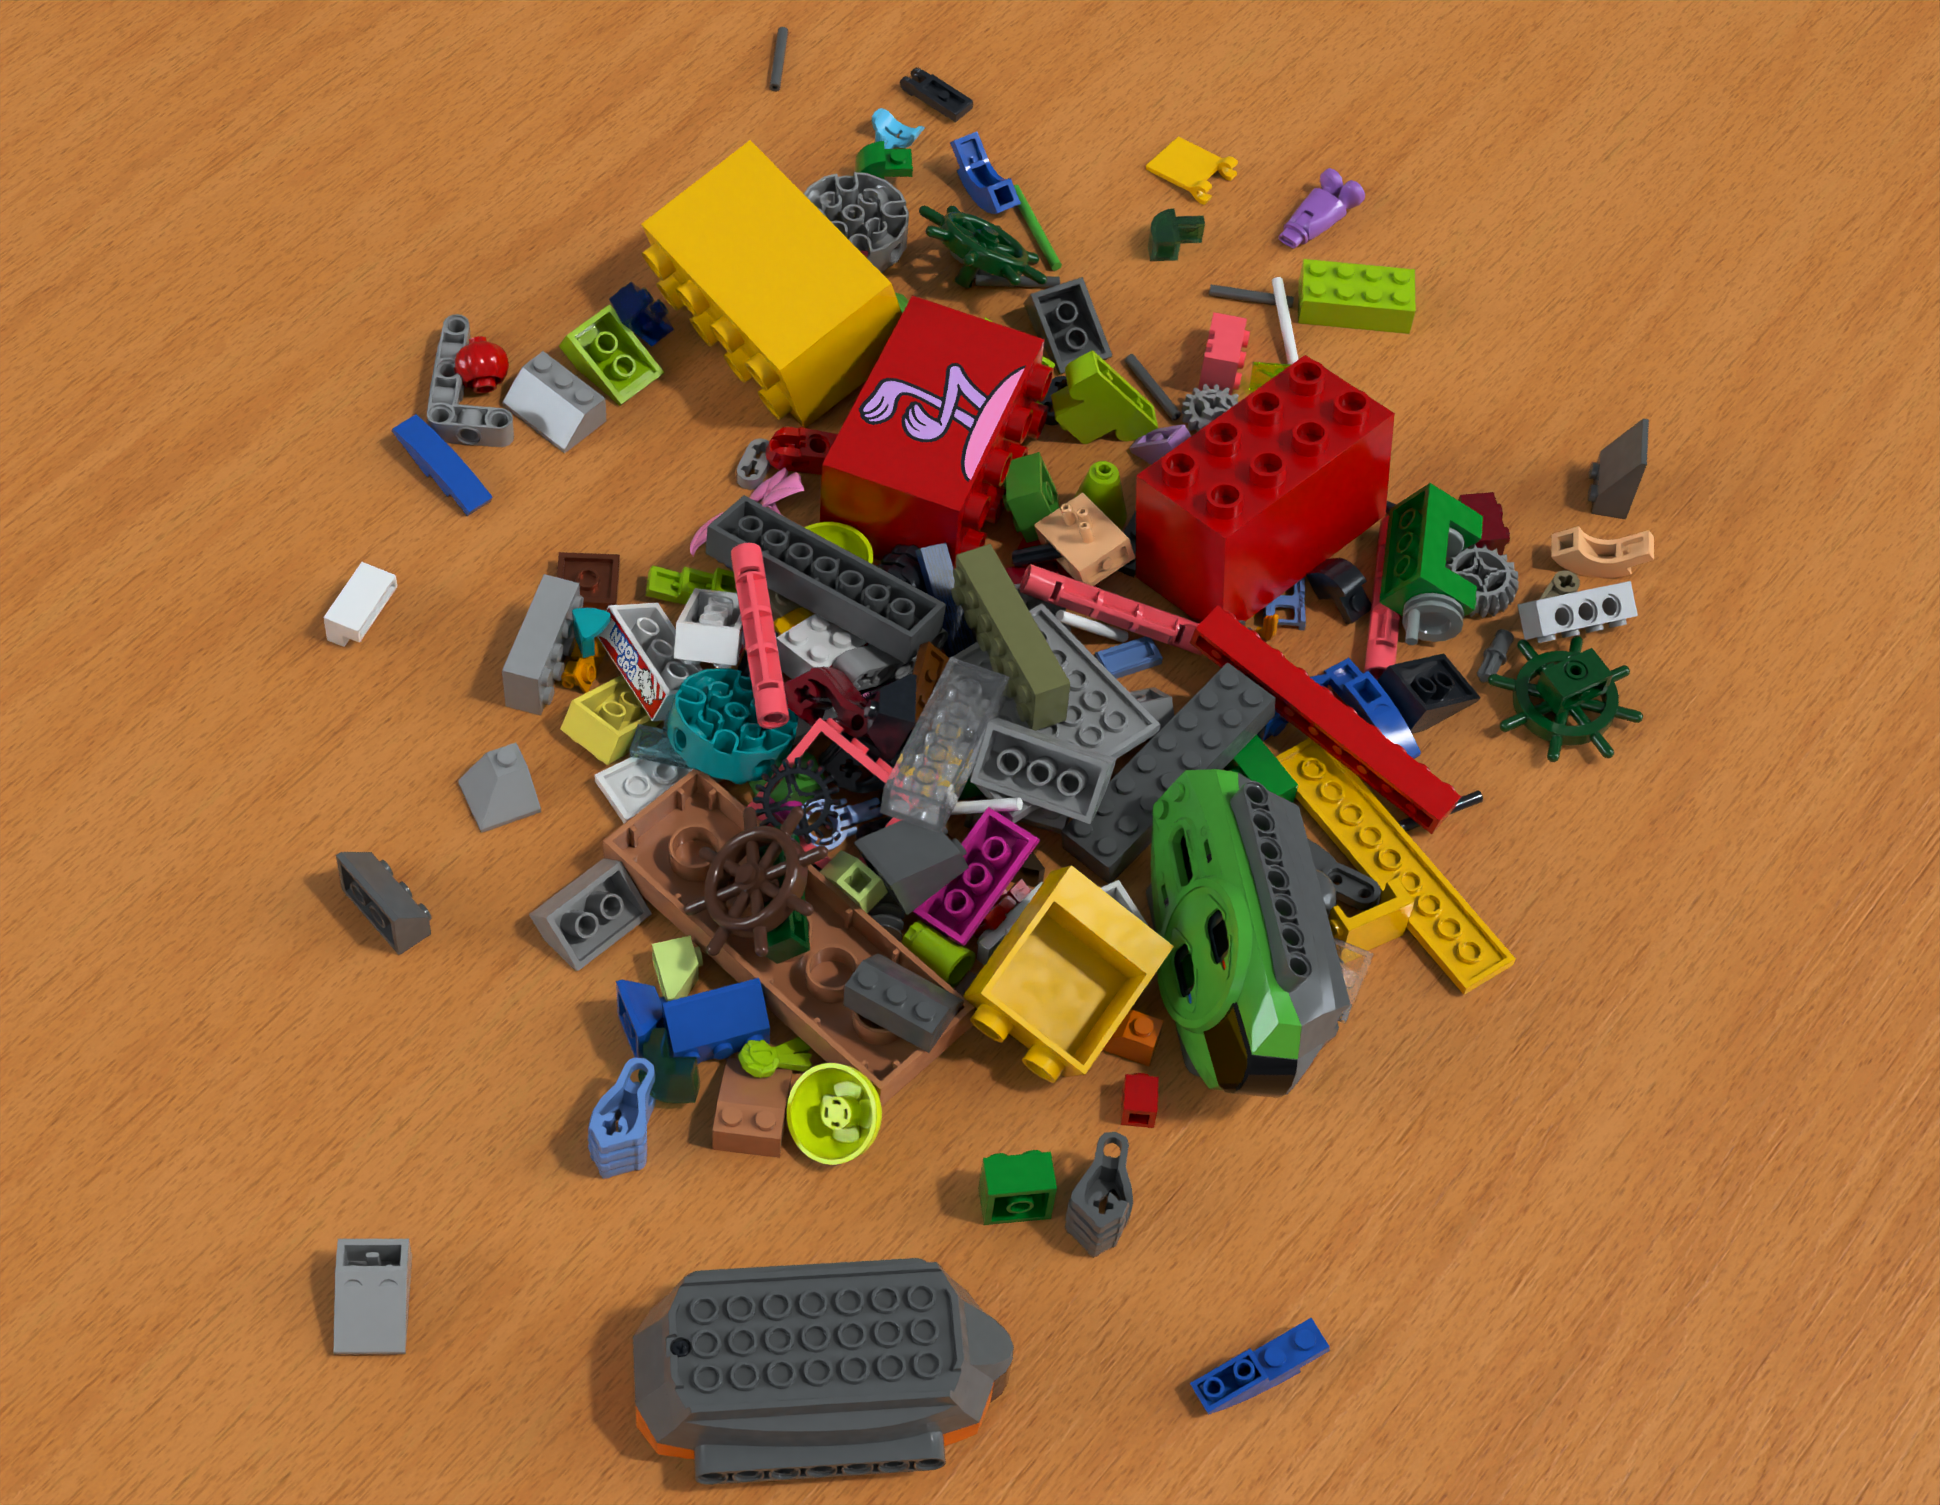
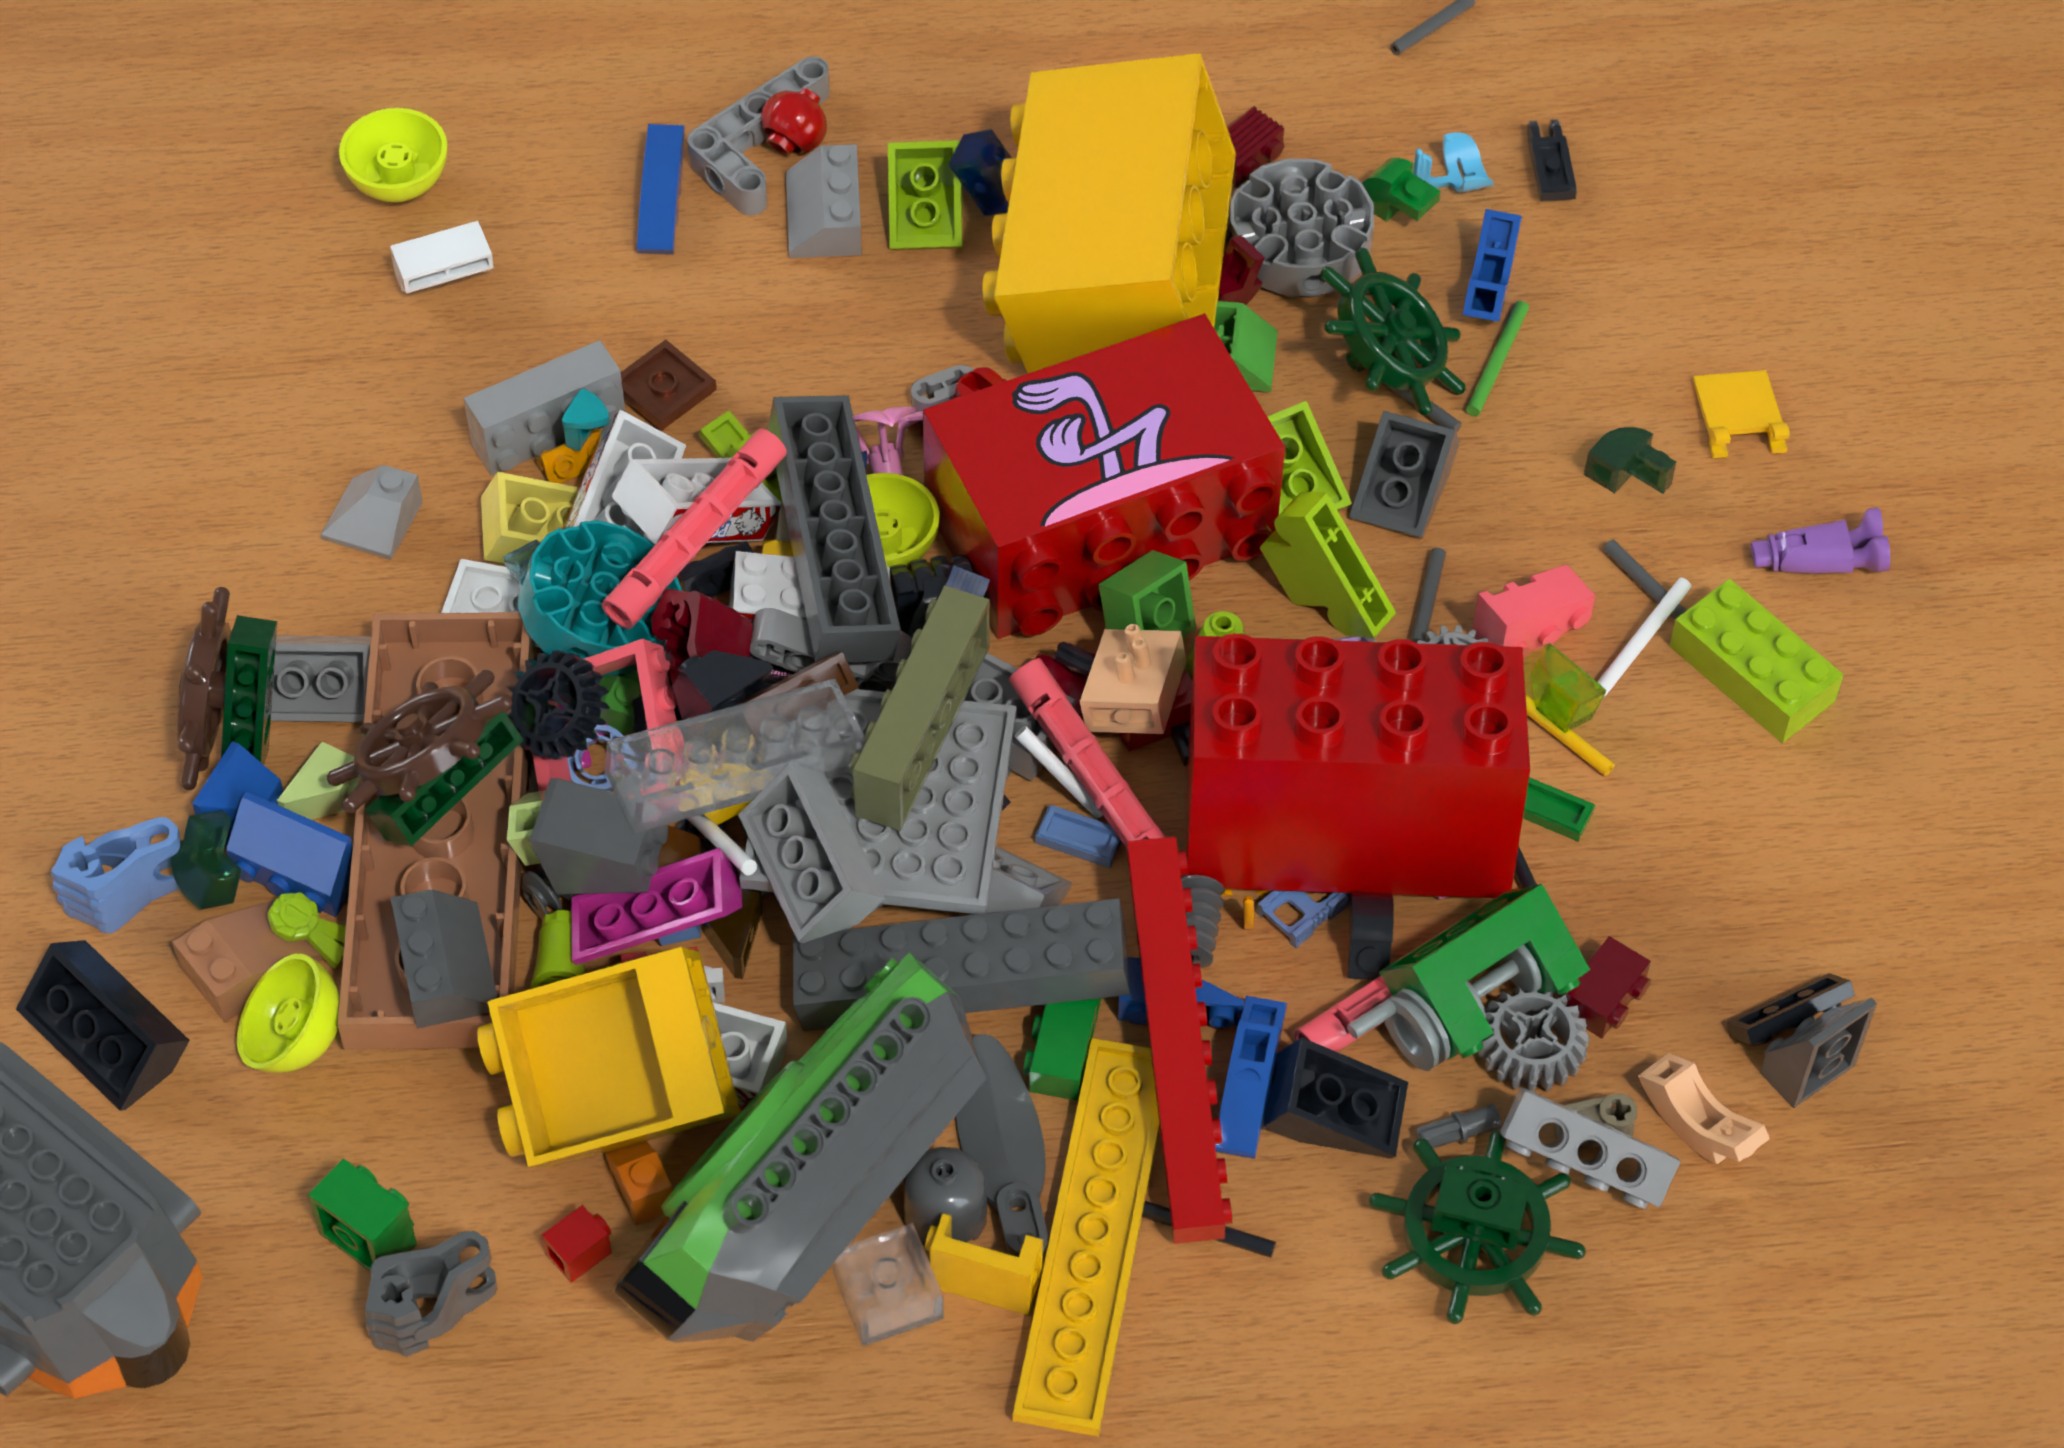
camera: 50 degrees right, 0 degrees up
(251, 559) = (394, 154): none -> neon yellow piece
(383, 899) = (162, 525): dark grey slope -> none
(574, 952) = (230, 674): none -> brick
(715, 1218) = (101, 1023): none -> black slope
(1575, 467) = (1790, 1009): none -> black plate

